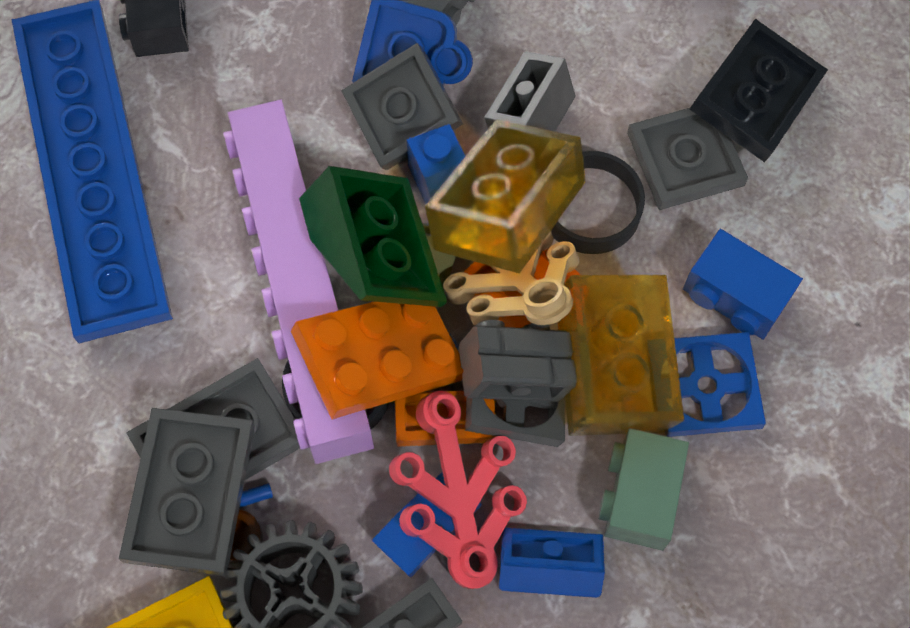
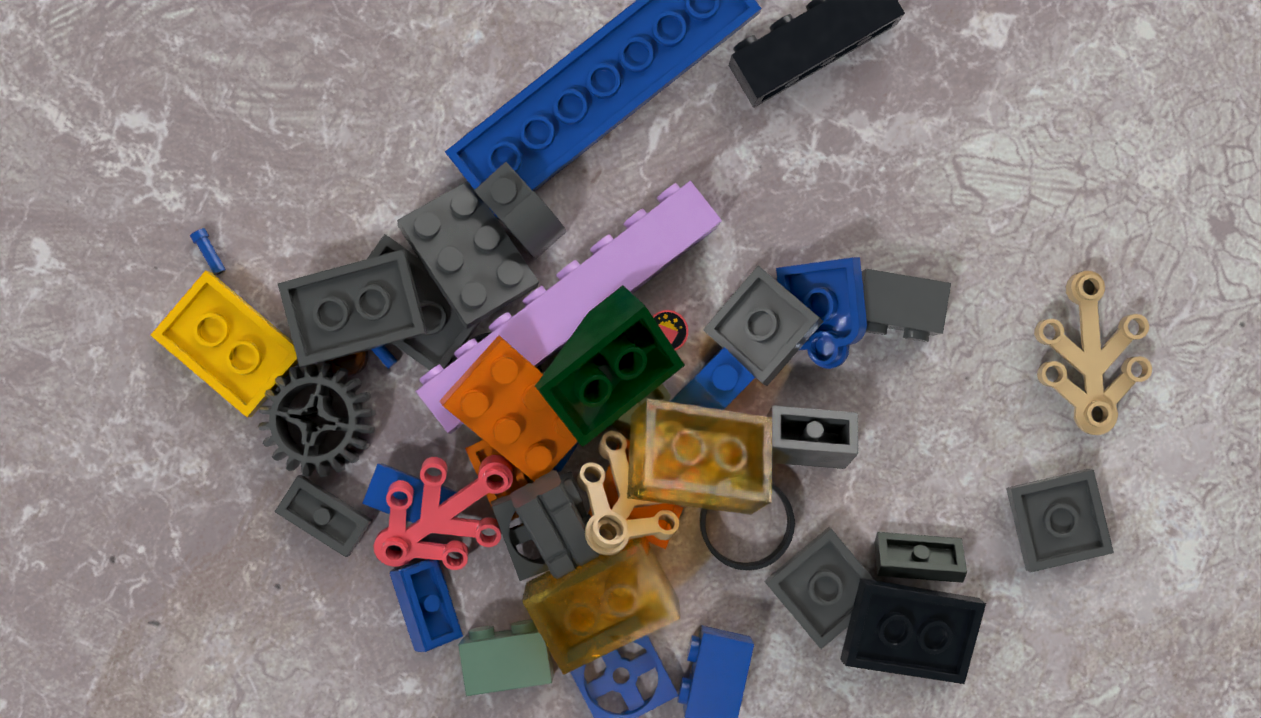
camera: 70 degrees right, 20 degrees up
(183, 275) = (520, 210): none -> dark grey brick
(191, 356) = (467, 254): none -> dark grey plate
(688, 62) = (920, 557): none -> pearl dark grey plate

